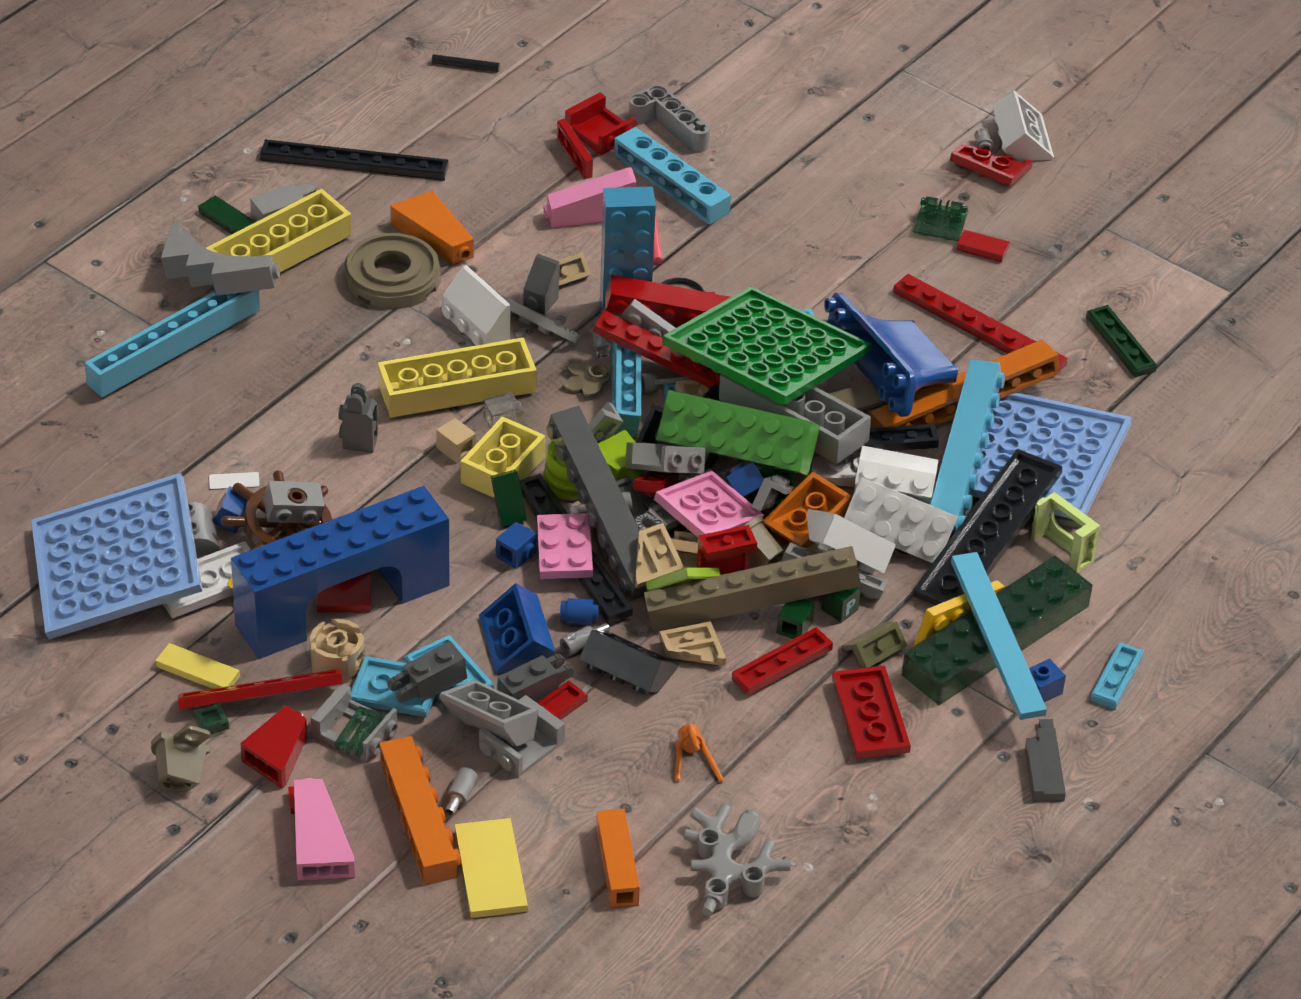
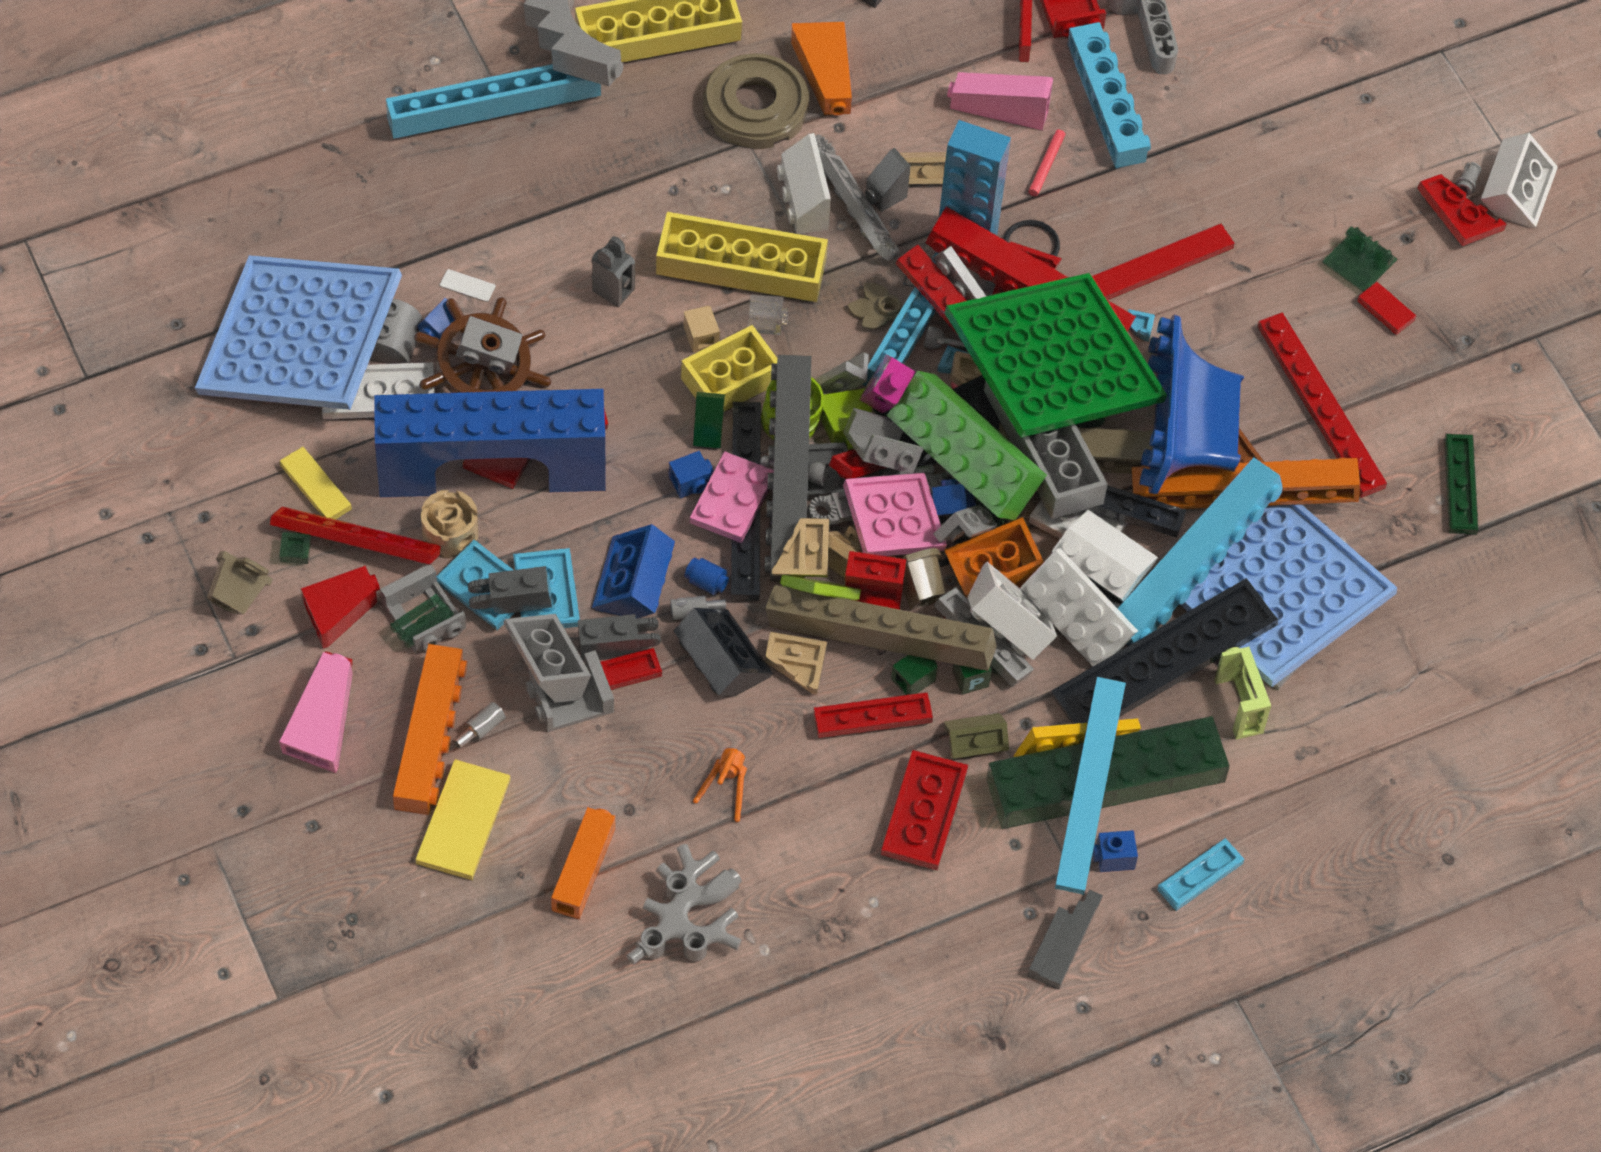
camera: 25 degrees right, 15 degrees up
(644, 414) = (887, 383): none -> dark pink torso
(799, 265) = (1164, 261): none -> red tile

